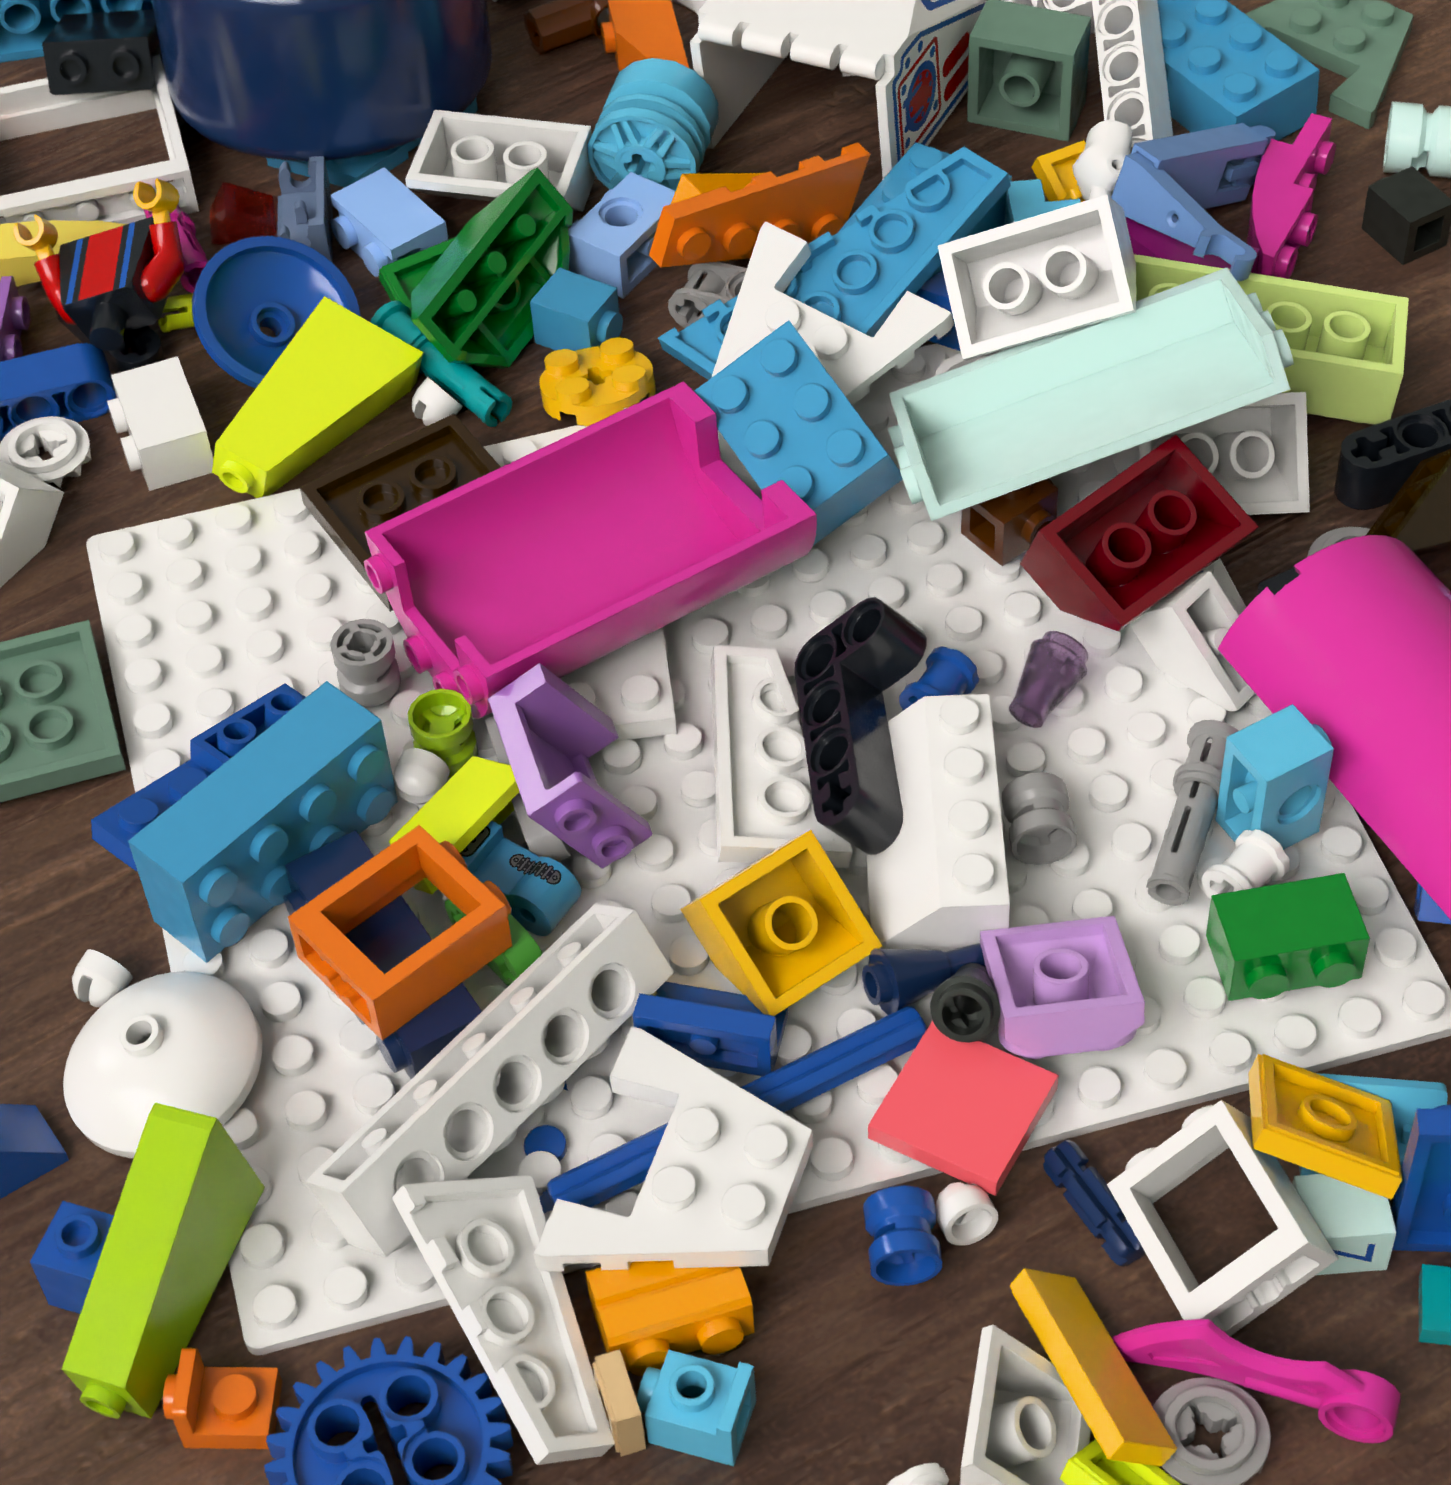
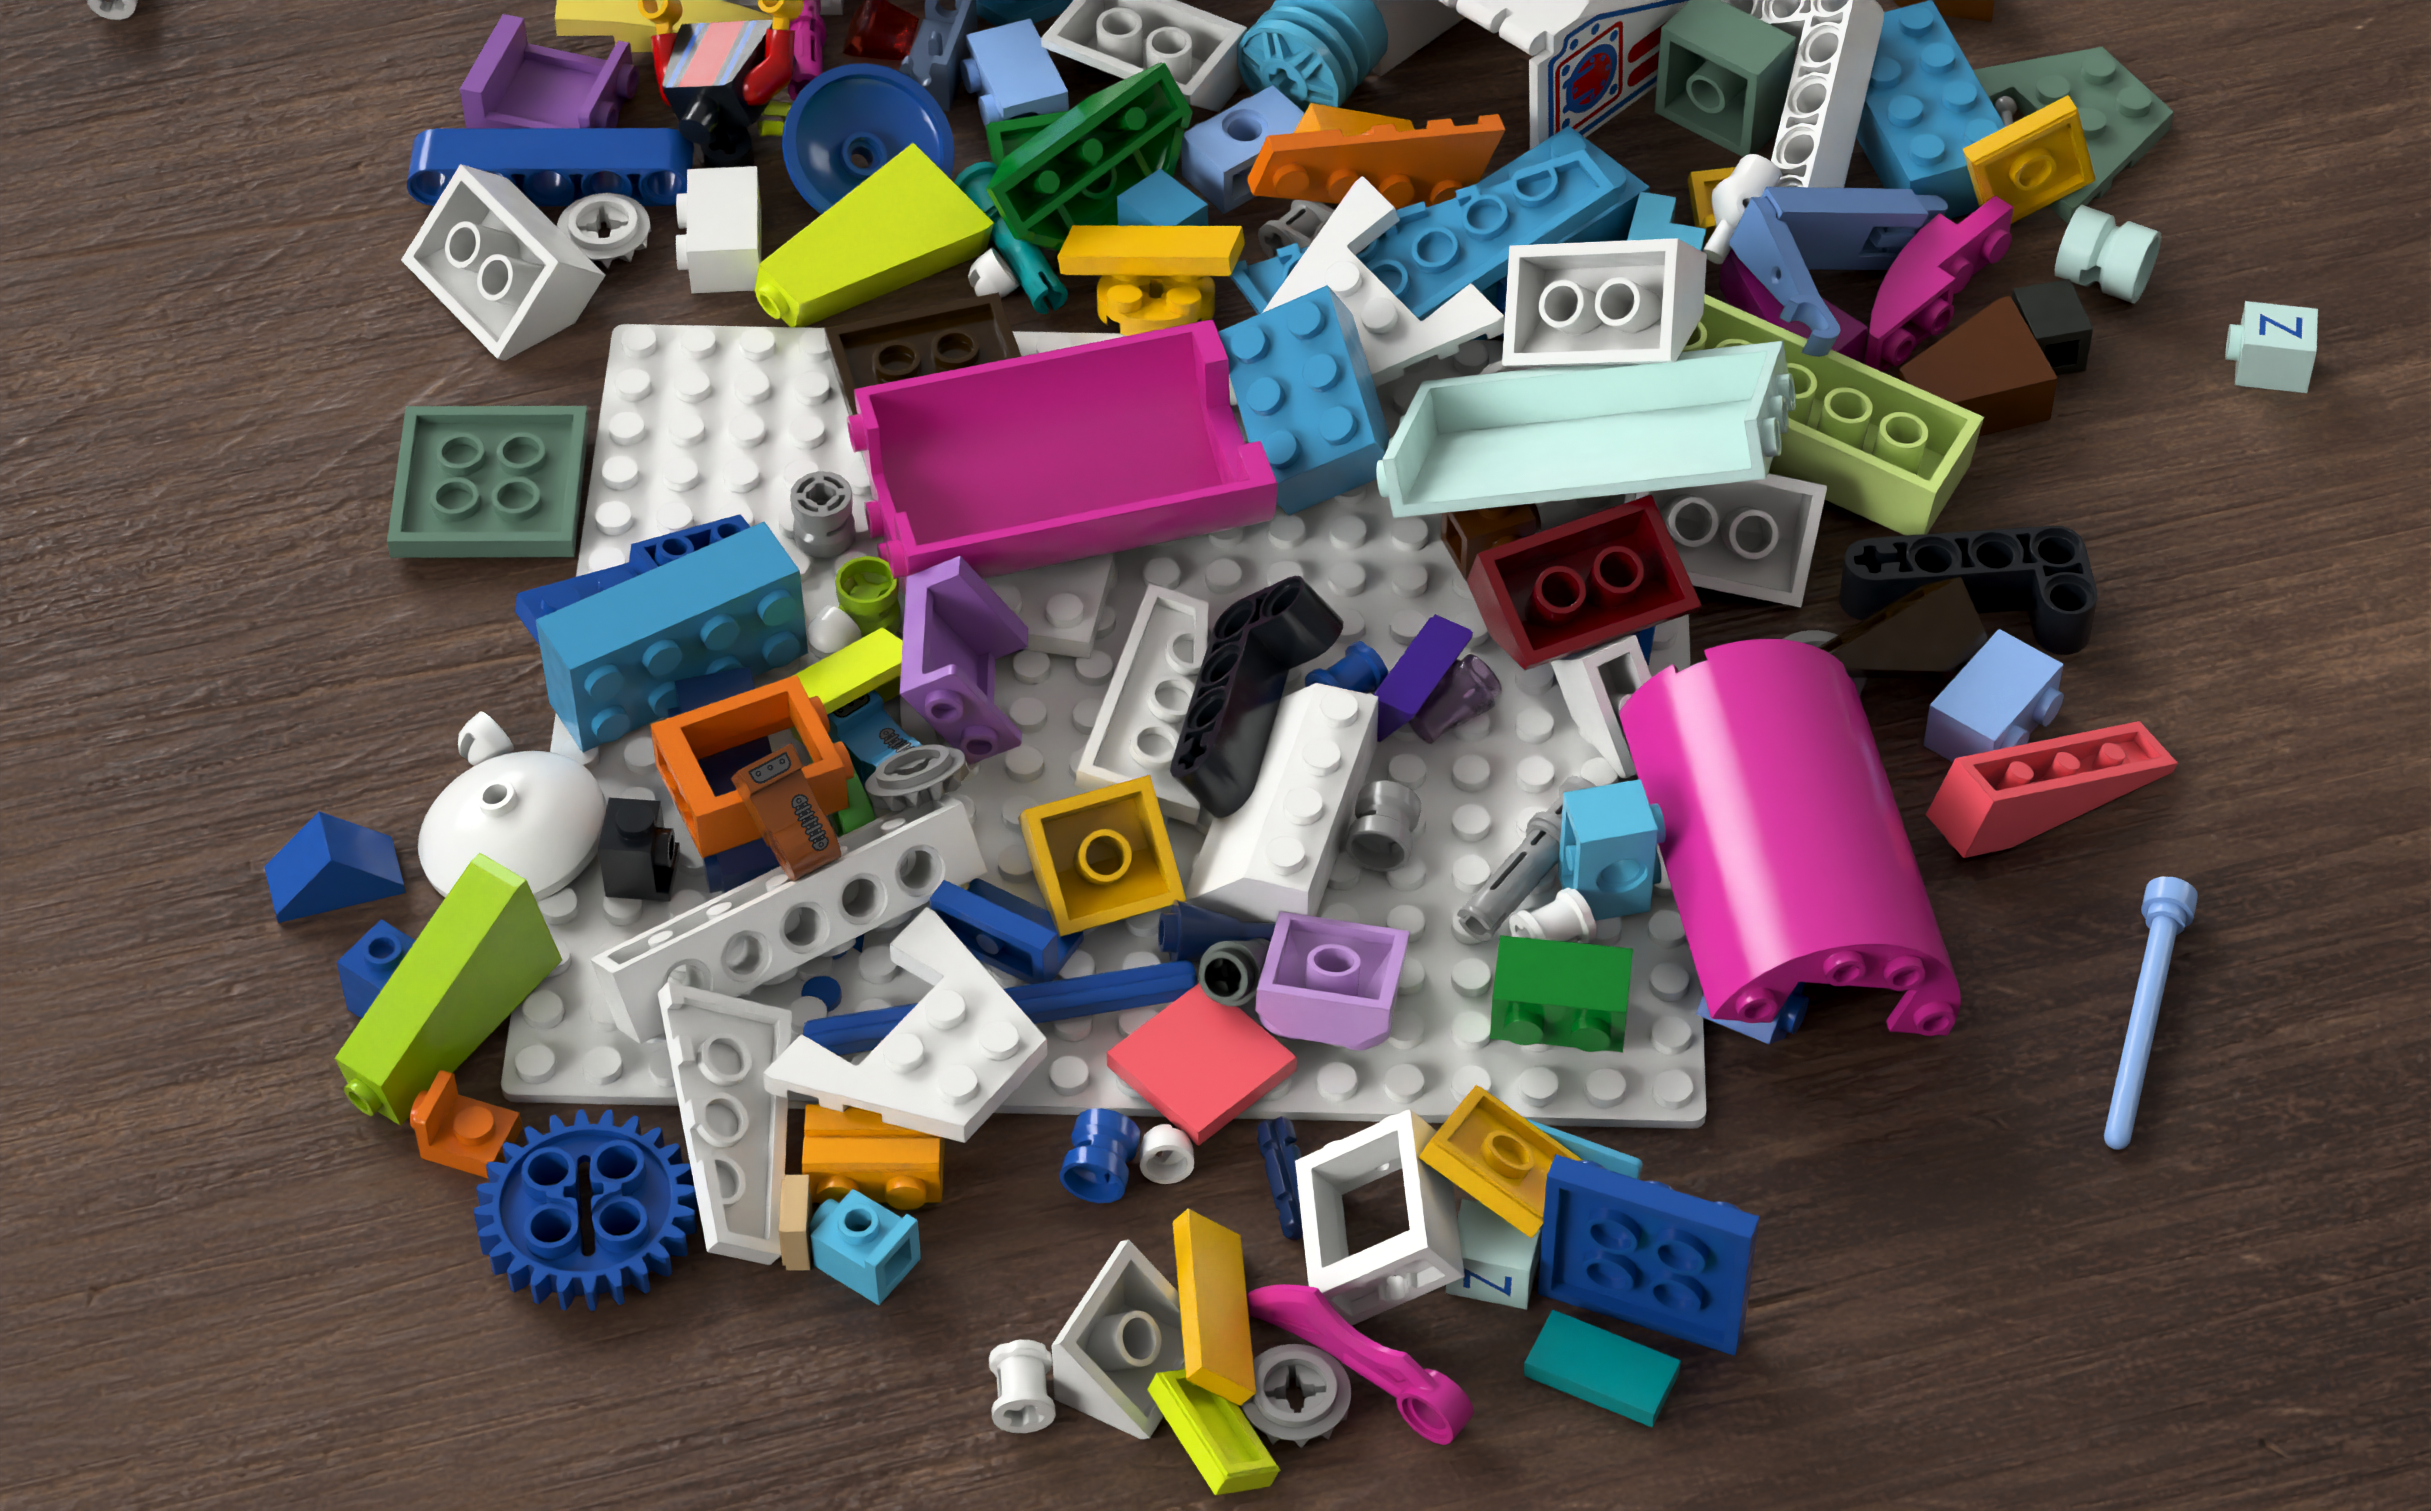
camera: 15 degrees right, 0 degrees up
(307, 1050) = (637, 851): none -> black brick
(467, 970) = (787, 812): none -> dark orange leg
(573, 895) = (916, 777): none -> light grey gear
(582, 341) = (1151, 250): none -> yellow tile
(1012, 660) = (1418, 672): none -> dark purple slope
(1334, 72) = (2032, 160): none -> yellow tile
(1381, 255) = (1989, 369): none -> reddish brown slope

